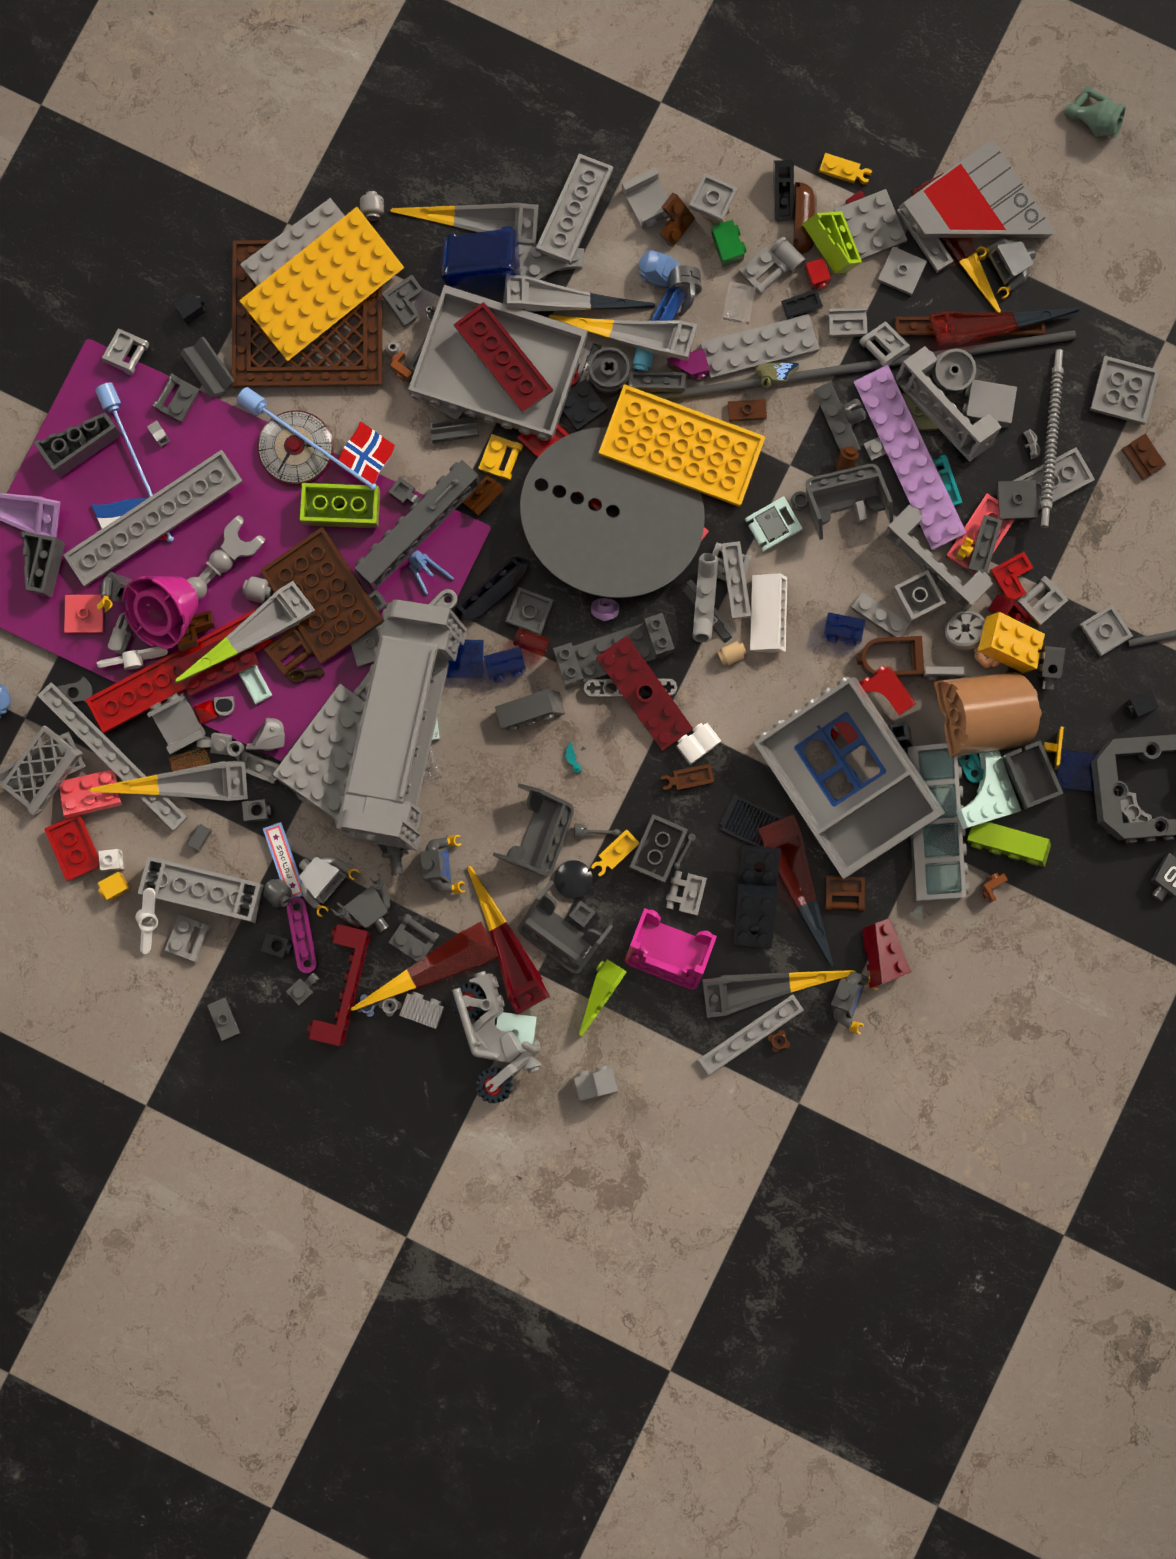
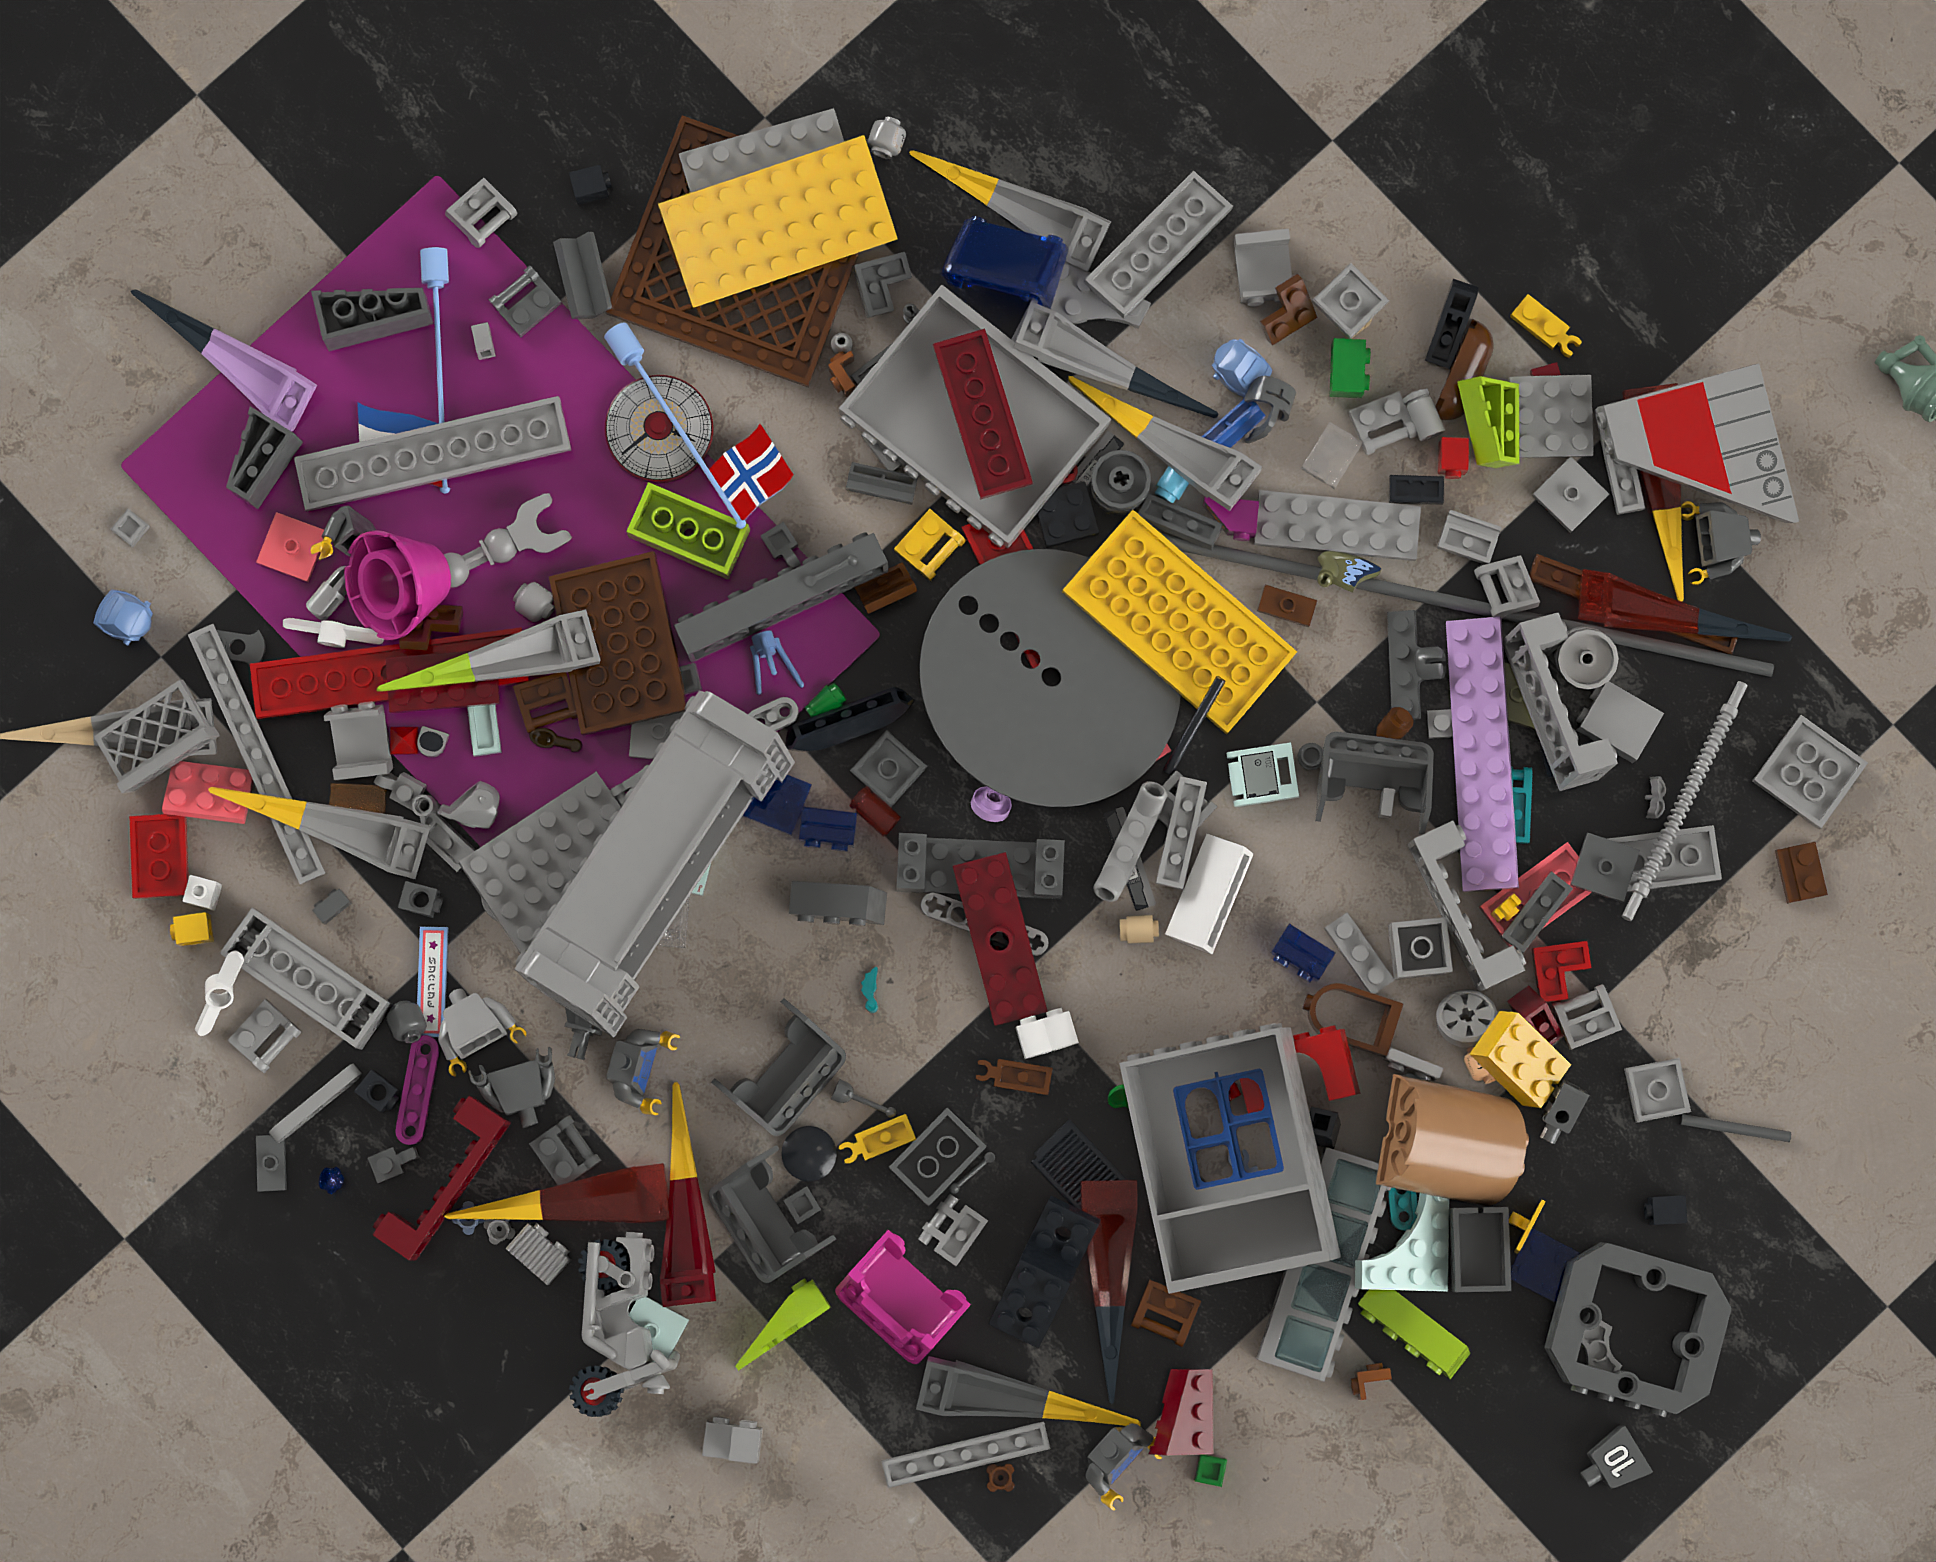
camera: 15 degrees right, 0 degrees up
(238, 968) = (315, 1103): none -> light grey beam
(267, 1014) = (331, 1179): none -> clear blue plate
(471, 582) = (826, 700): none -> green cone
(717, 508) = (1194, 725): none -> black bar
(761, 766) = (1117, 1097): none -> green piece
(912, 984) = (1210, 1470): none -> green tile

